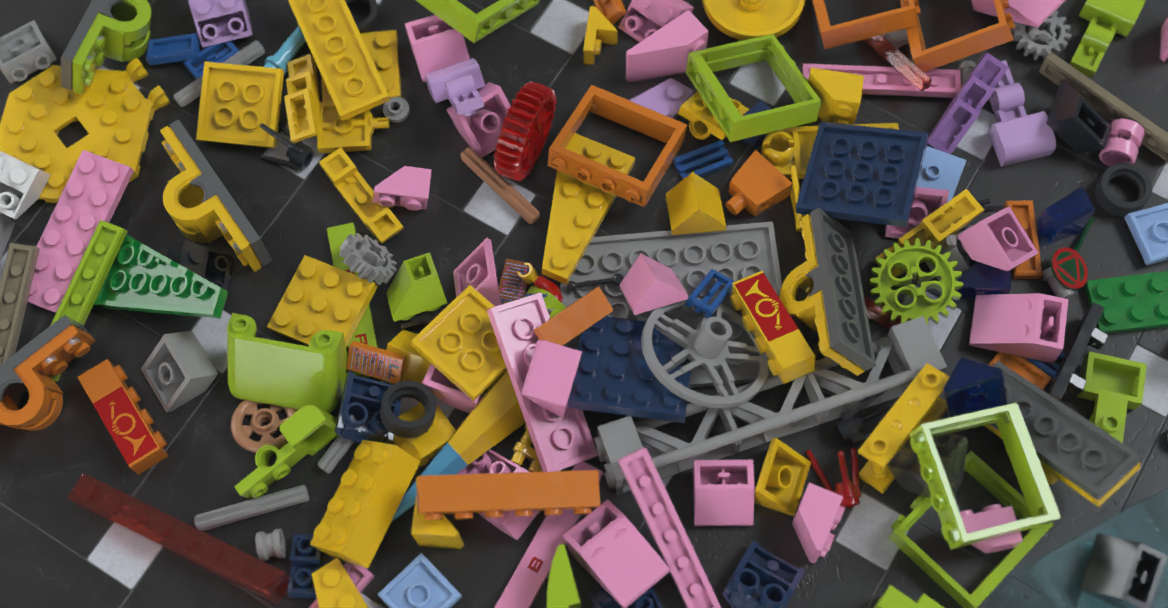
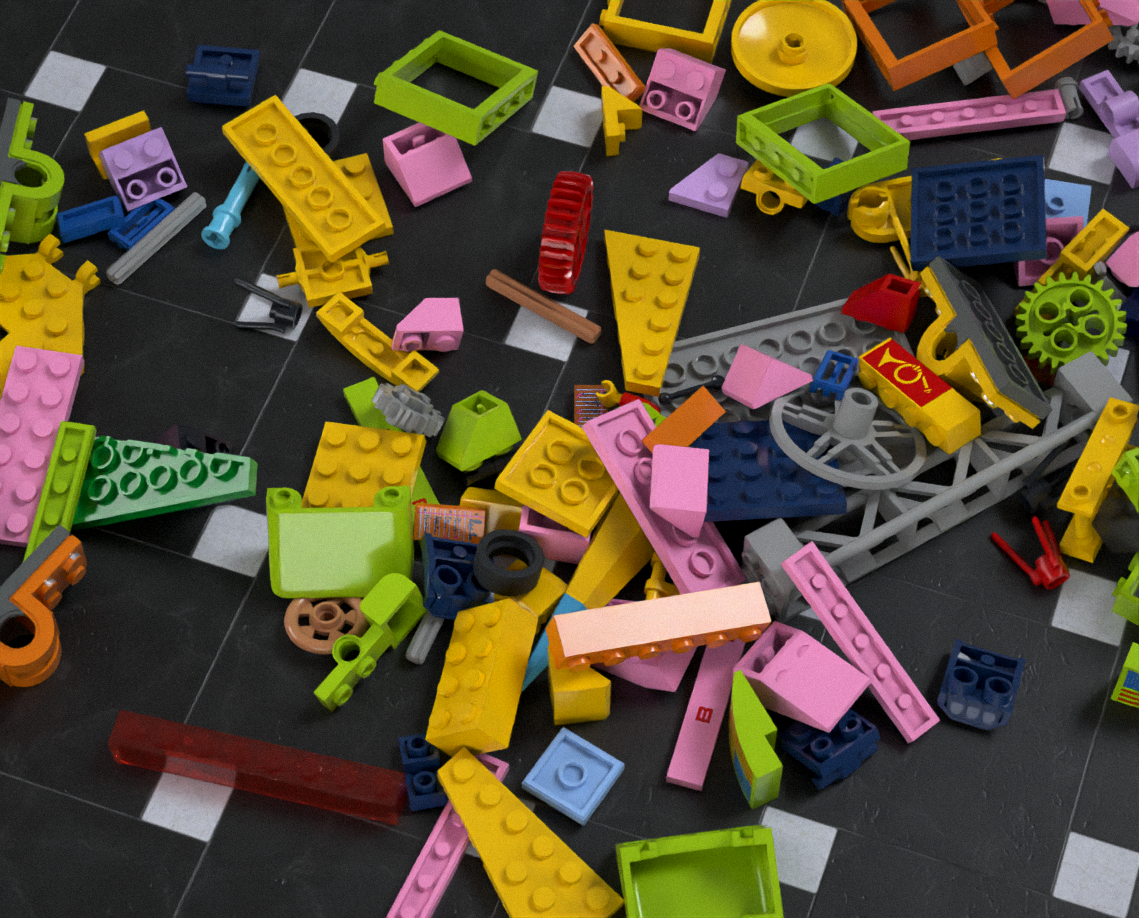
camera: 15 degrees left, 10 degrees down
(123, 416) = (147, 644): brick -> none
(178, 369) = (201, 579): light grey slope -> none
(203, 204) = (192, 379): yellow piece -> none
(237, 102) = (195, 265): yellow plate -> none
(251, 508) = (341, 716): light grey axle -> none
(270, 544) = (374, 751): light grey wheel -> none
(302, 98) = (274, 245): yellow slope -> none
(396, 115) = (393, 249): light grey plate -> none
(458, 85) = (468, 196): lavender plate -> none
(479, 272) = (548, 392): bright pink slope -> none
(484, 126) = (504, 233): bright pink slope -> none
(627, 114) = (682, 201): orange window -> none
(666, 49) = (708, 119): bright pink slope -> none
(695, 207) = (786, 288): yellow slope -> none
(701, 152) = (777, 236): blue tile -> none
(723, 492) = (907, 591): bright pink slope -> none
(757, 186) = (855, 254): orange torso -> none
(767, 237) = (885, 302): none -> red slope
(781, 478) = (969, 566): yellow slope -> none
(815, 518) = (1026, 598): bright pink slope -> none
(839, 94) = (929, 132): yellow slope -> none
(900, 62) = (985, 89): clear red axle -> none
(967, 104) = (1077, 122): medium lavender slope -> none

